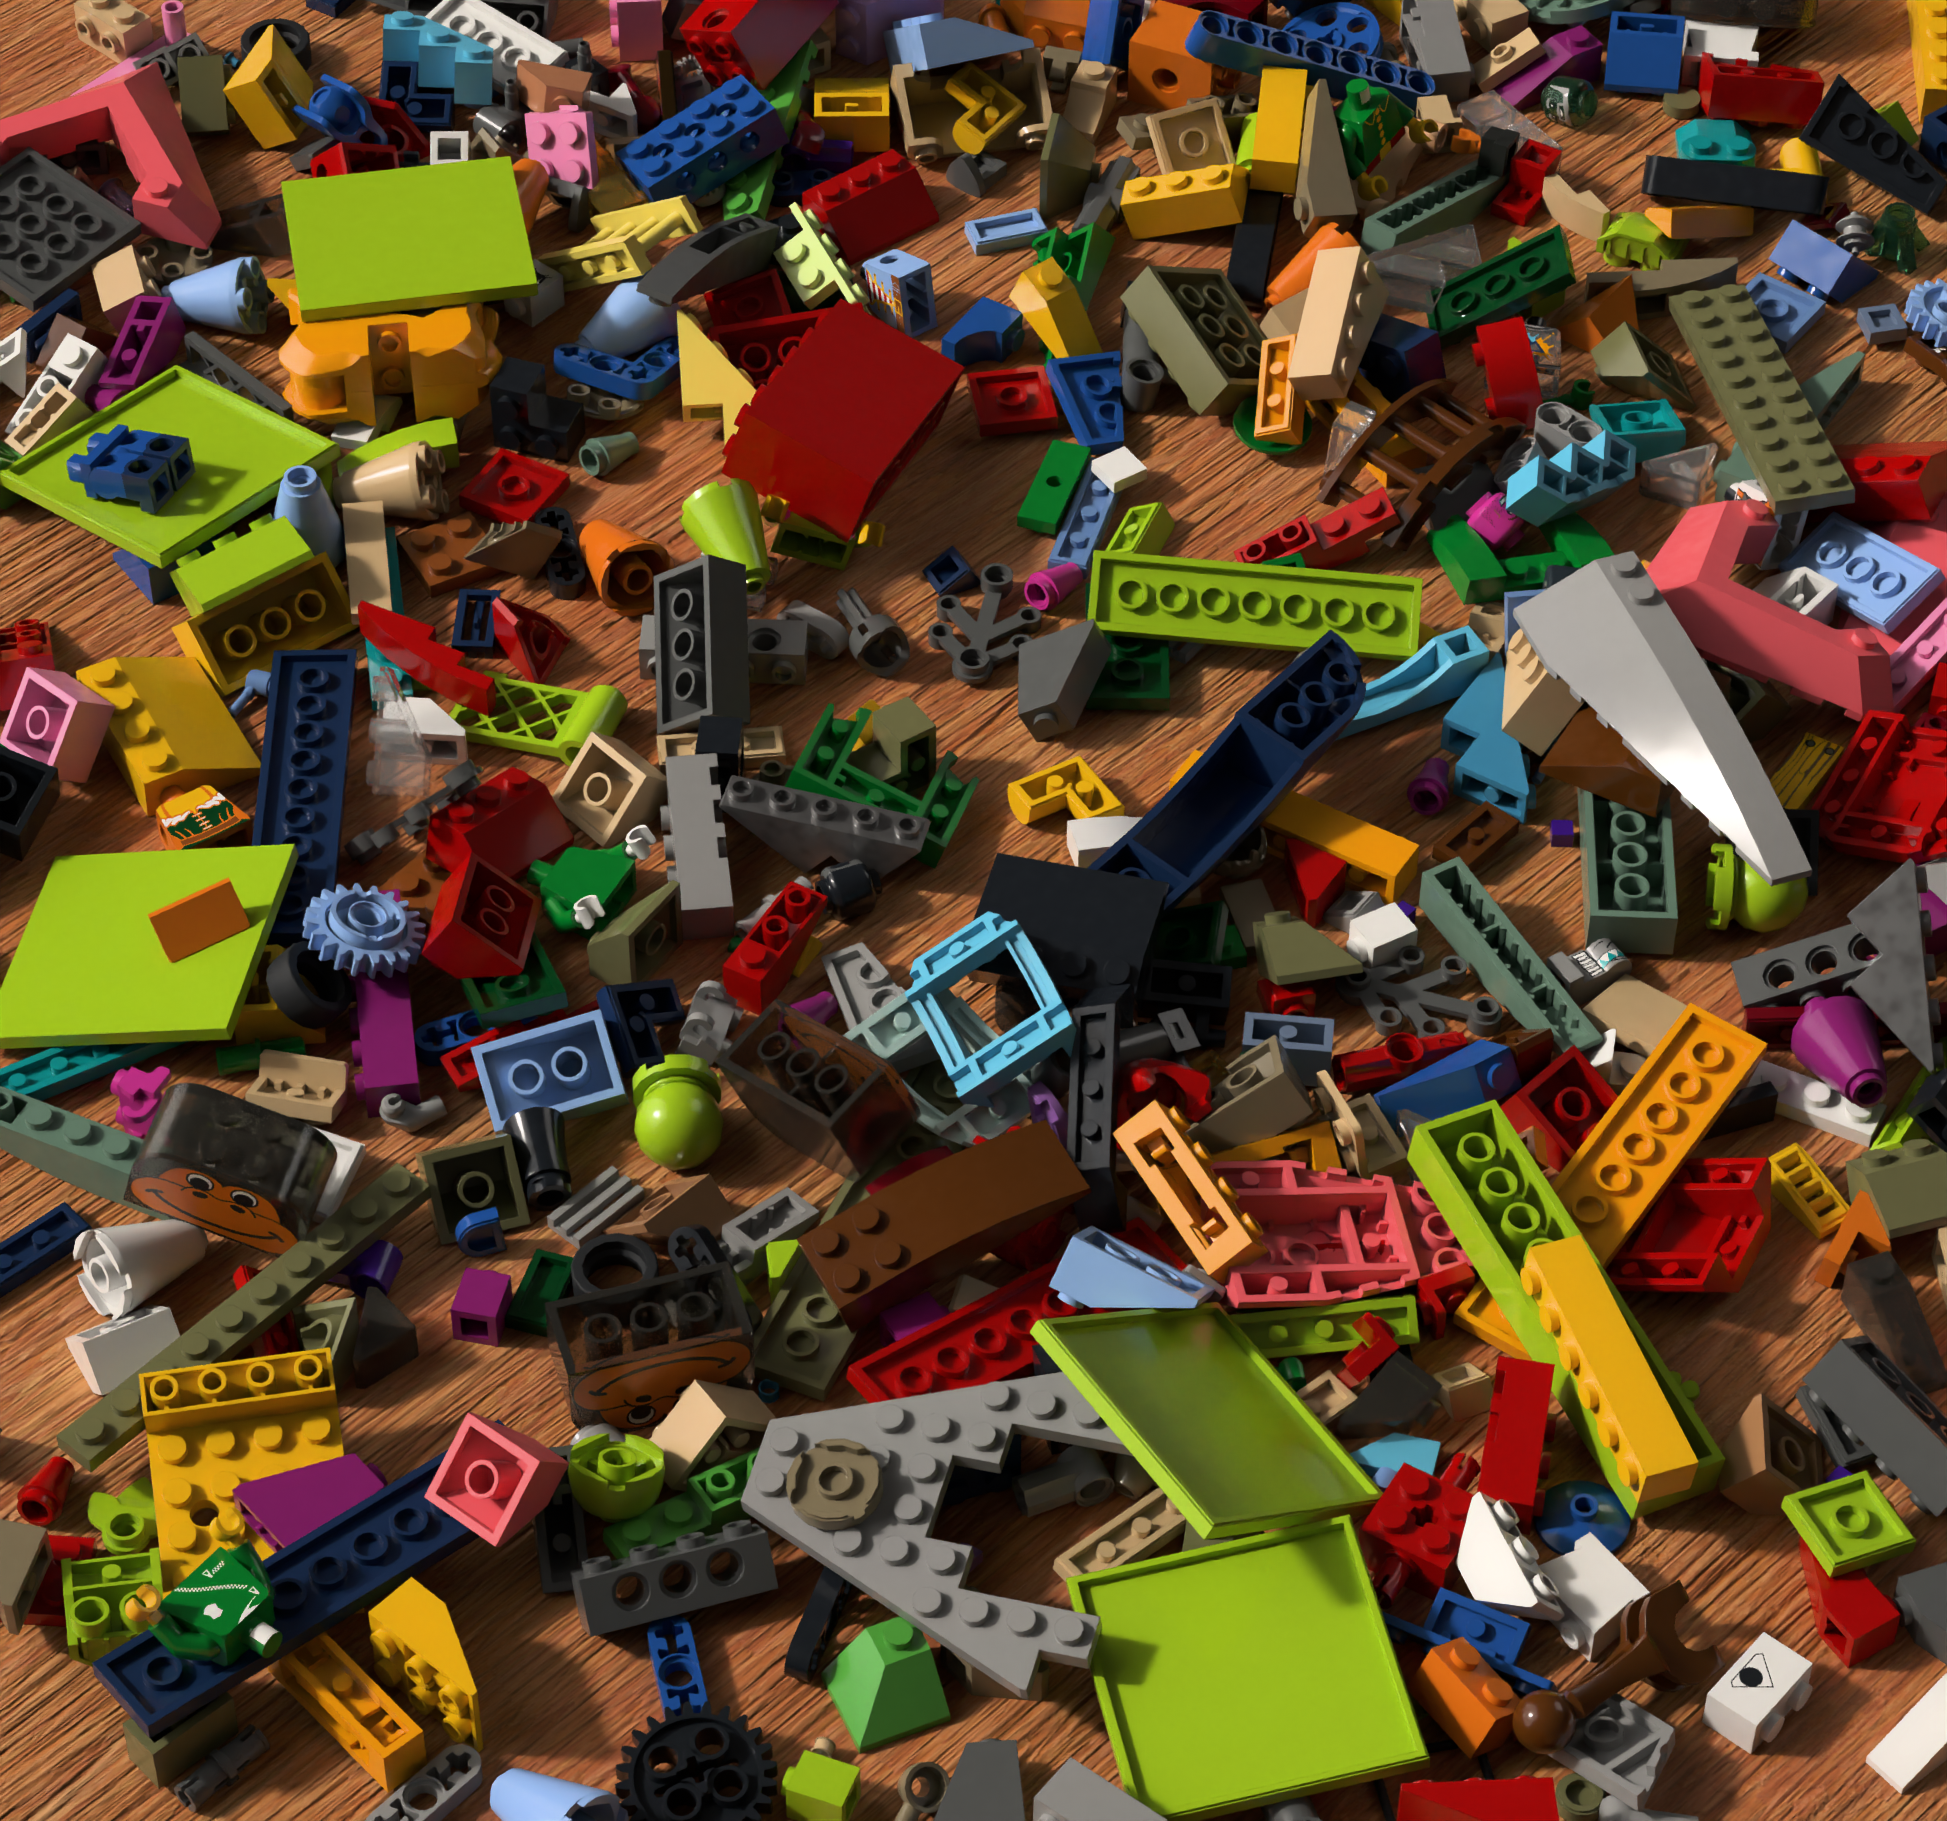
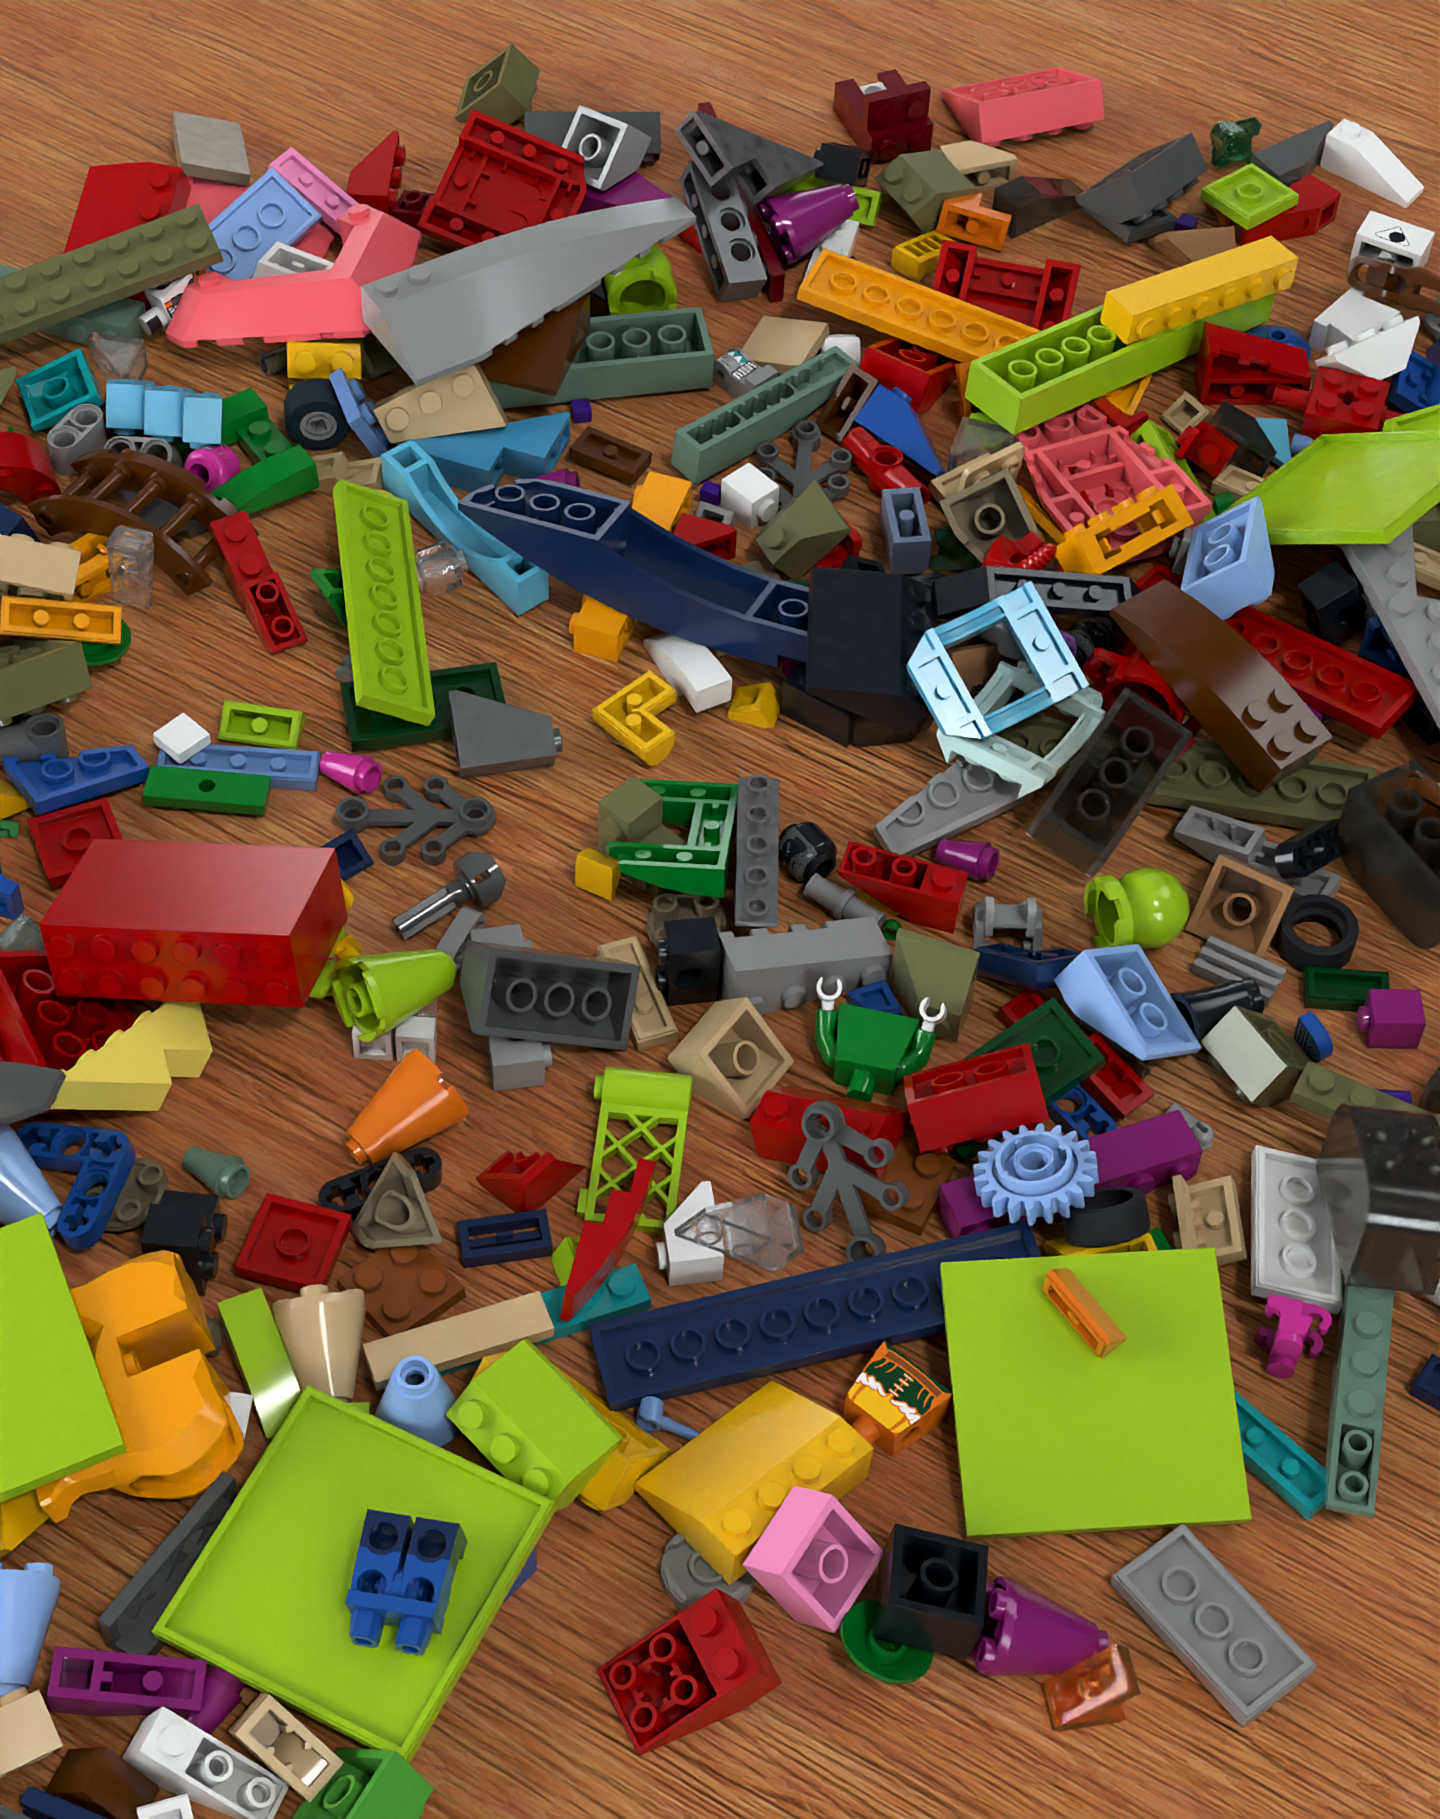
camera: 105 degrees left, 5 degrees up
(780, 1260) = (1265, 814): lime slope -> none

